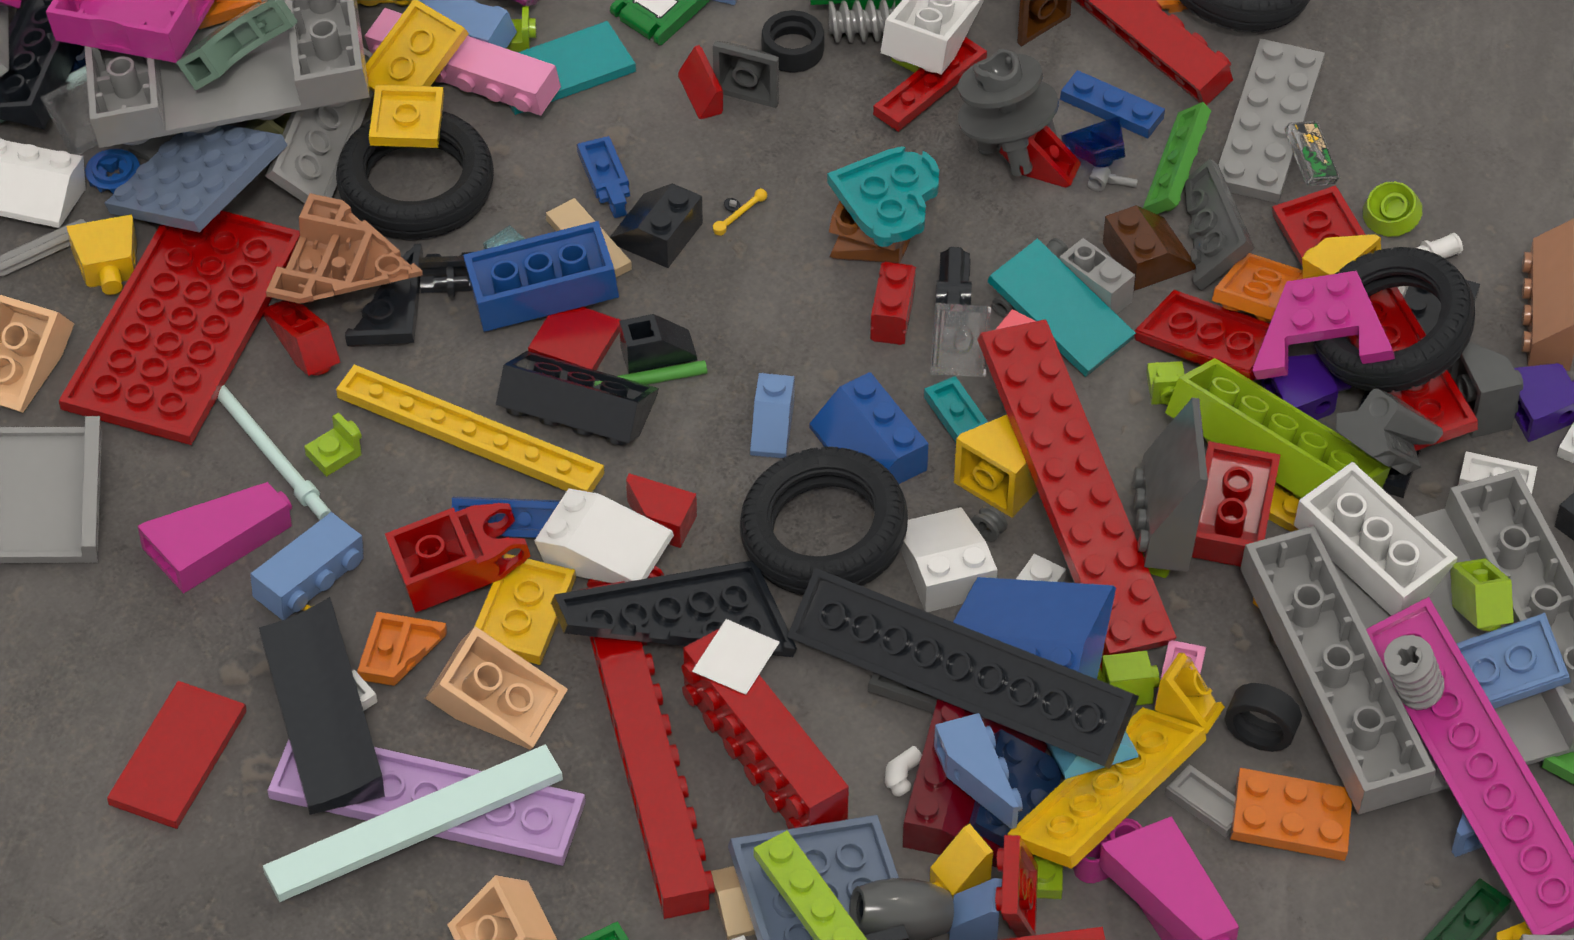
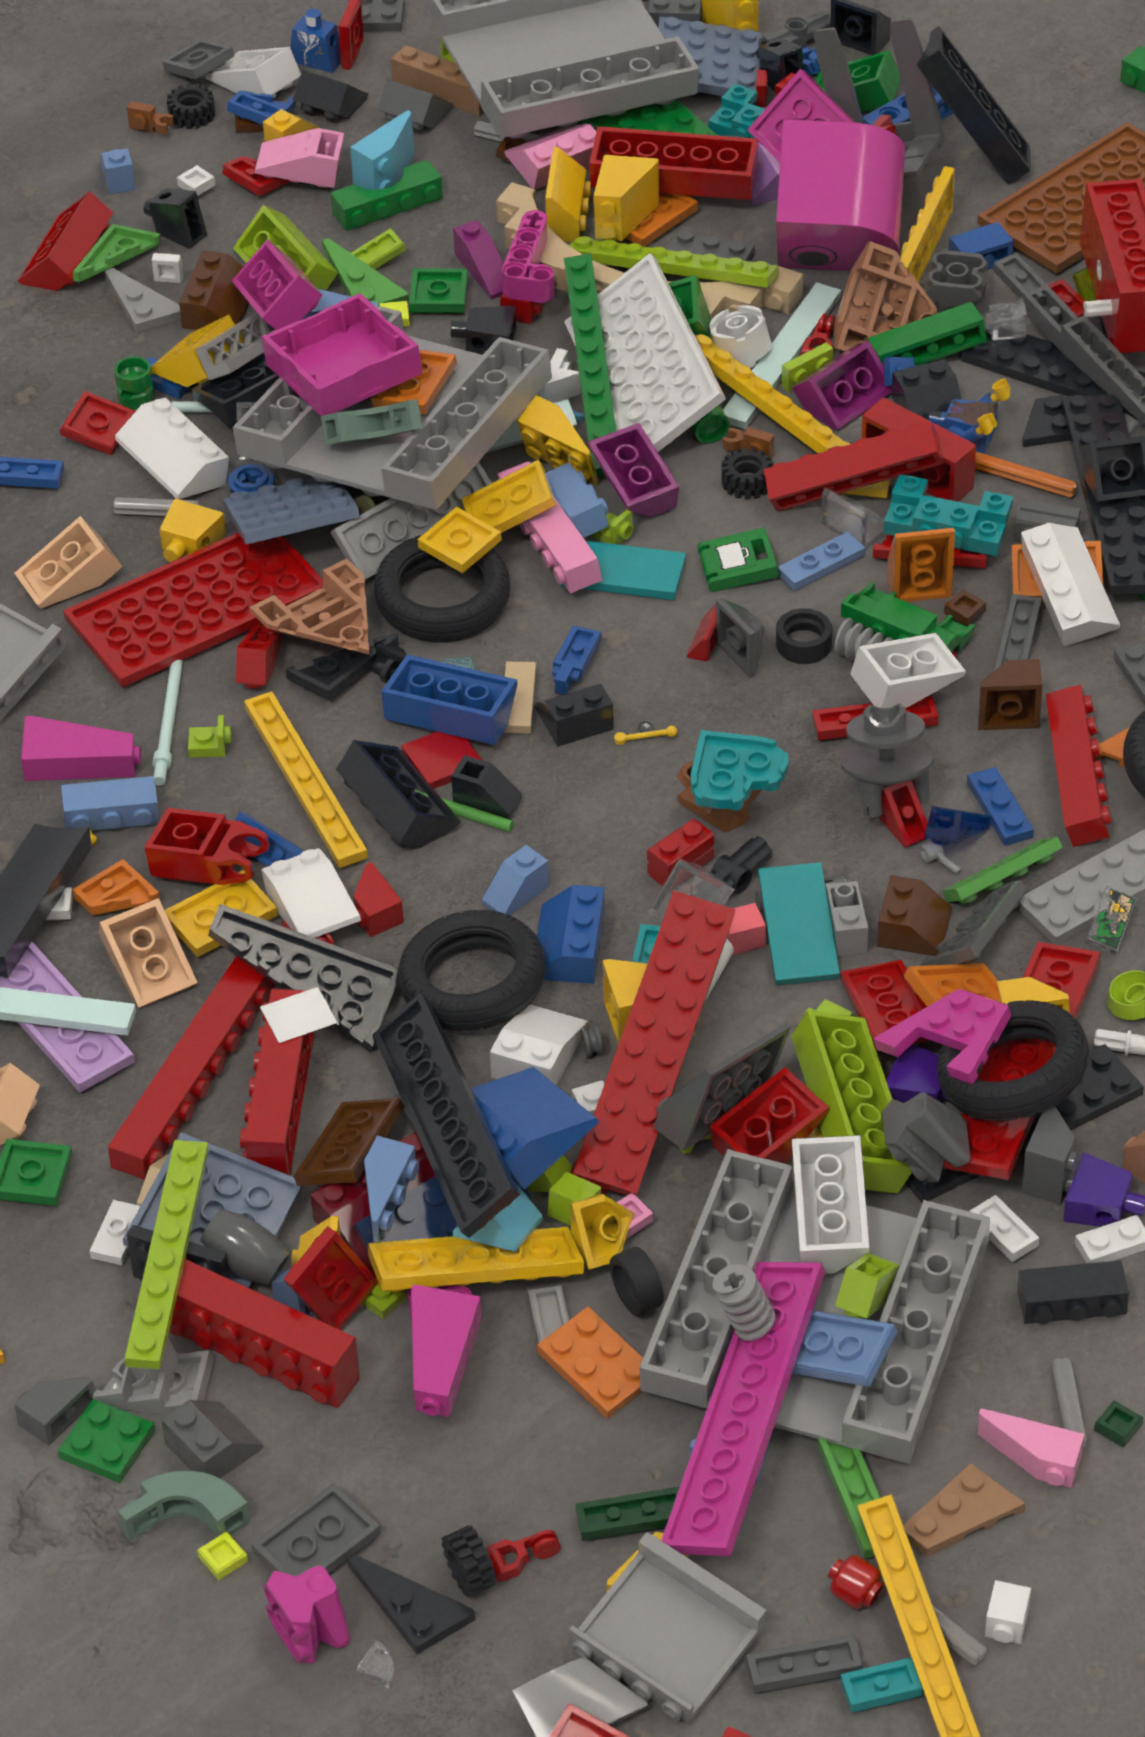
camera: 40 degrees right, 5 degrees down
(883, 751) = (346, 1141): none -> reddish brown tile

